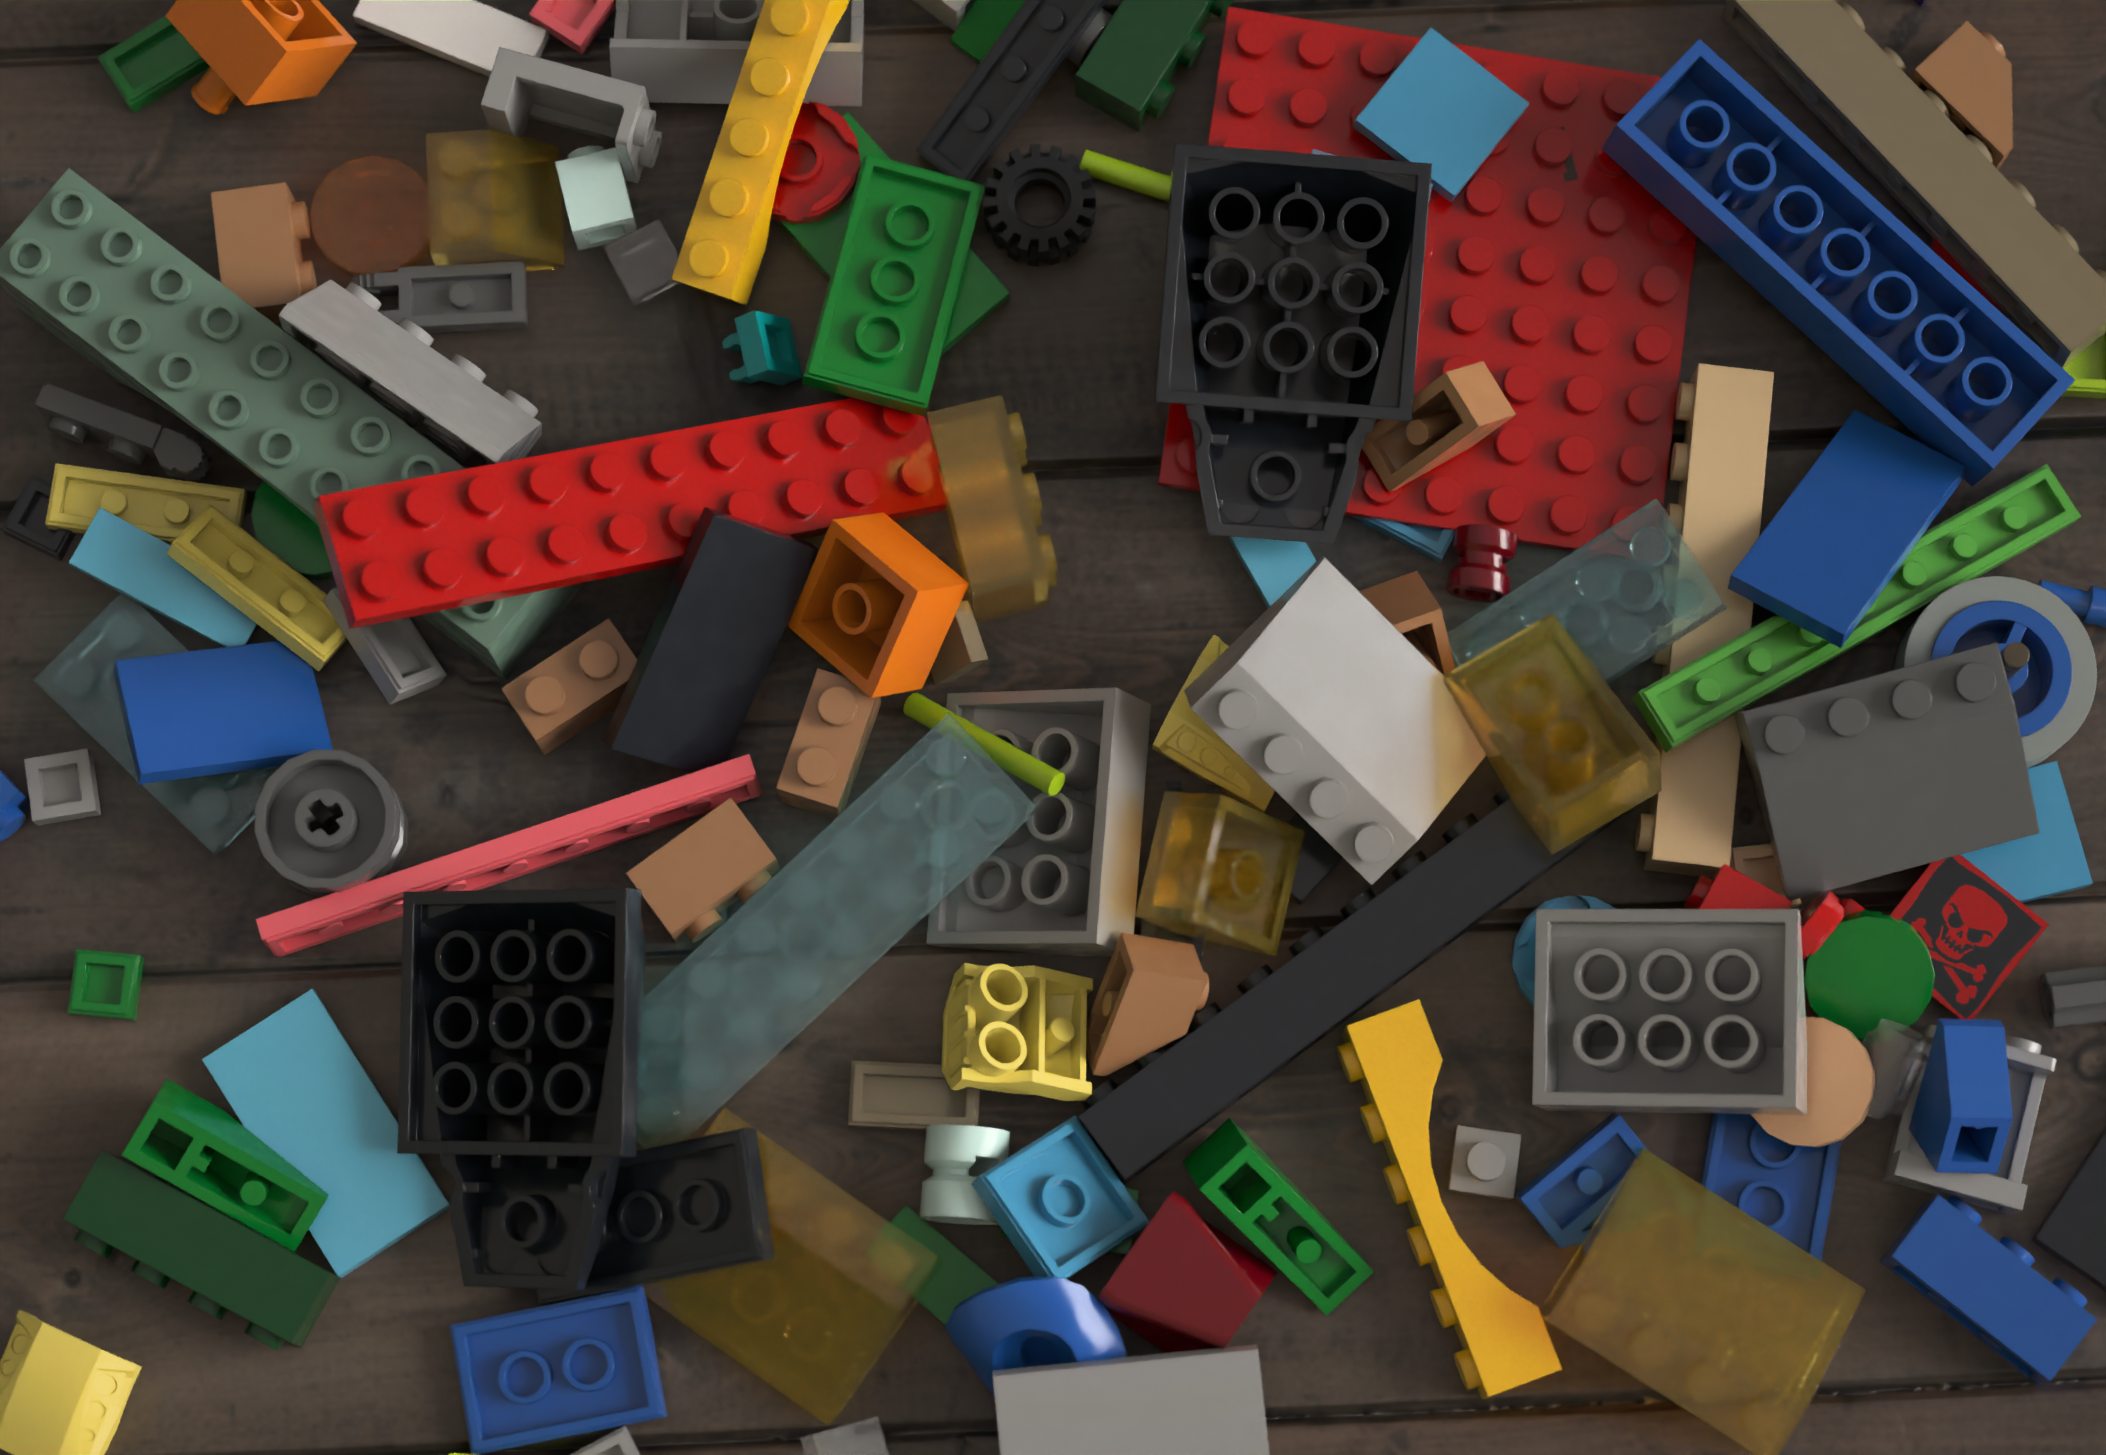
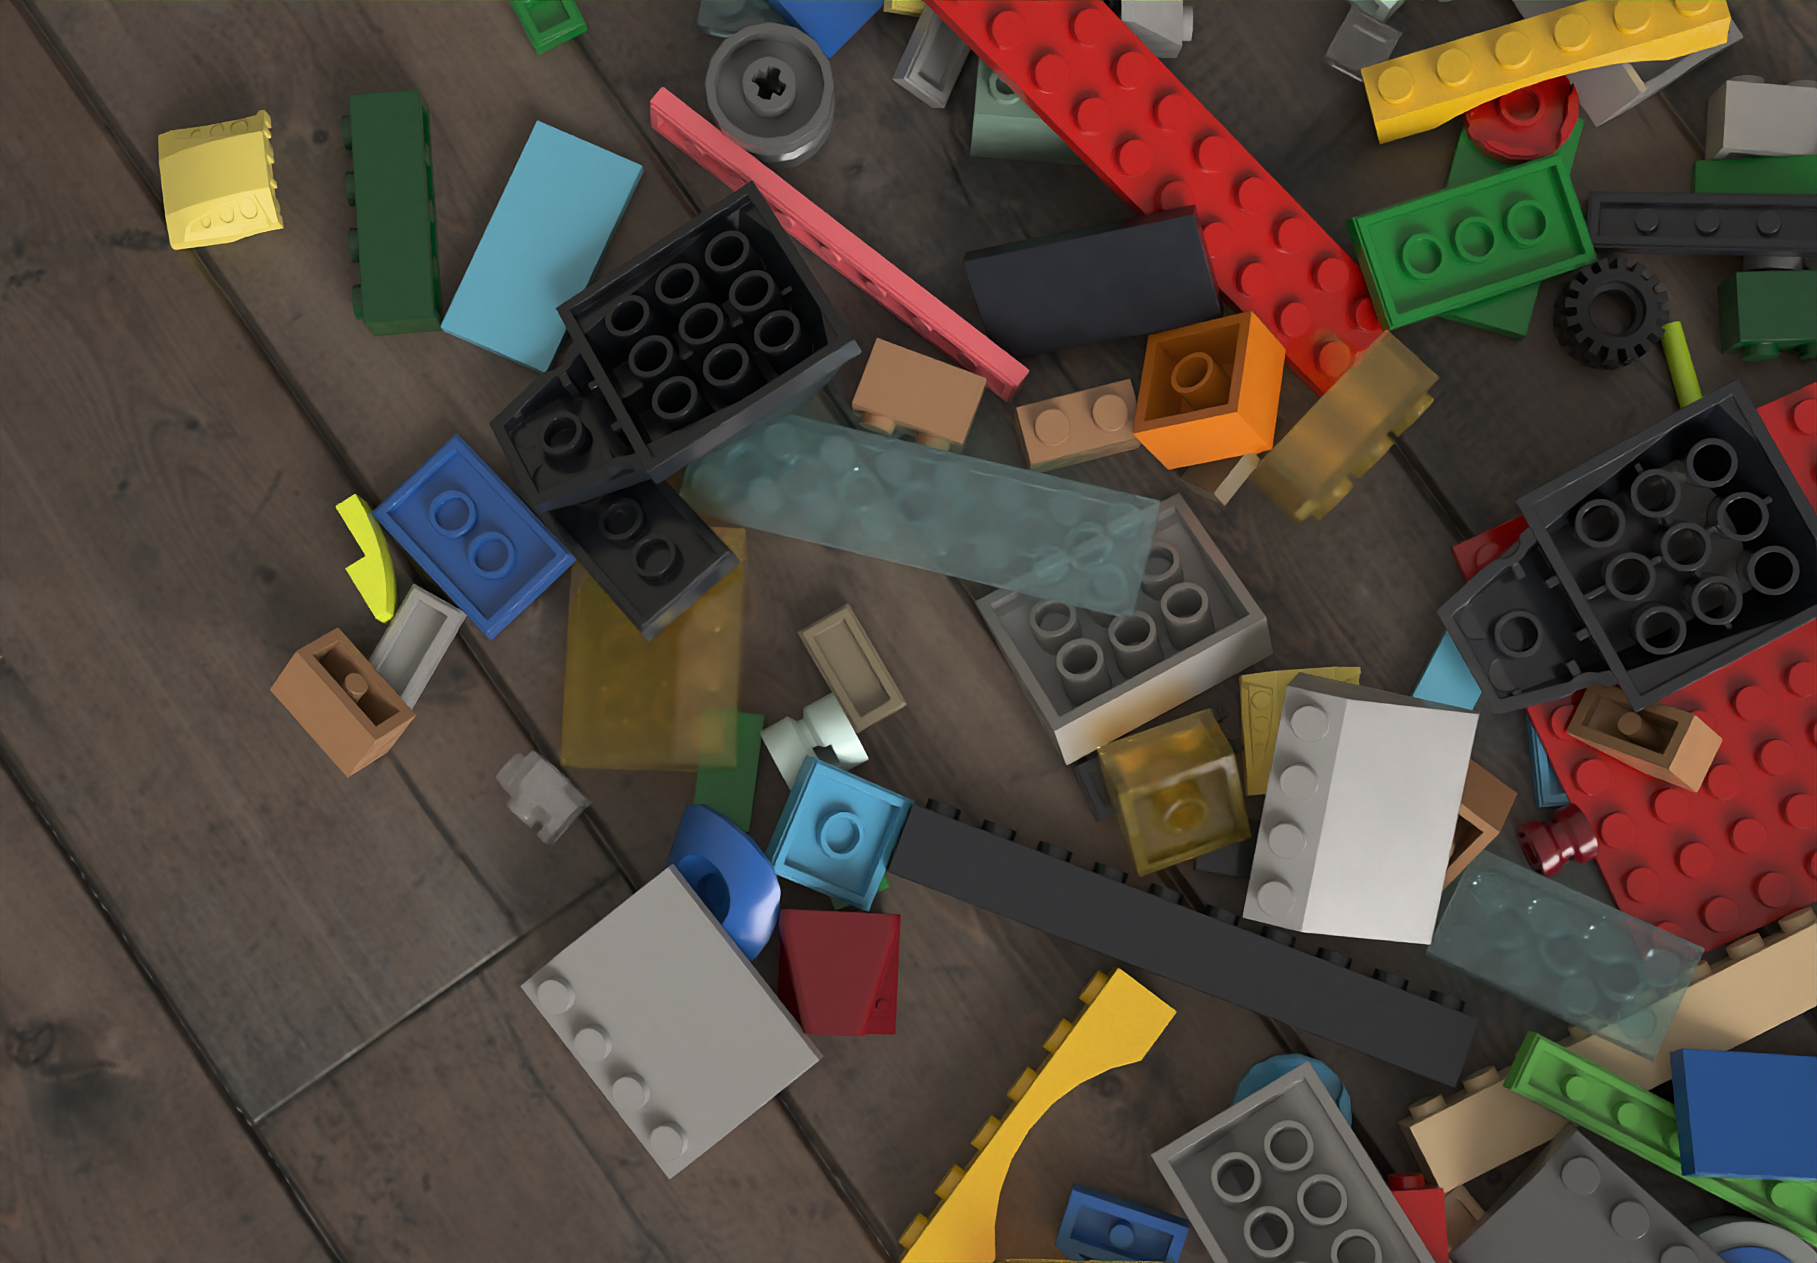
camera: 55 degrees right, 5 degrees up
(224, 1165) = (465, 184): green slope -> none
(572, 686) = (993, 203): medium nougat brick -> none
(766, 349) = (1355, 179): teal tile -> none
(1003, 753) = (1157, 566): lime bar -> none
(1017, 1031) = (950, 715): light yellow slope -> none
(1143, 1001) = (1036, 796): medium nougat slope -> none
(1276, 1216) = (937, 1005): green slope -> none
(1484, 1163) = (1084, 1142): light grey plate -> none
(1555, 733) = (1459, 987): clear yellow slope -> none

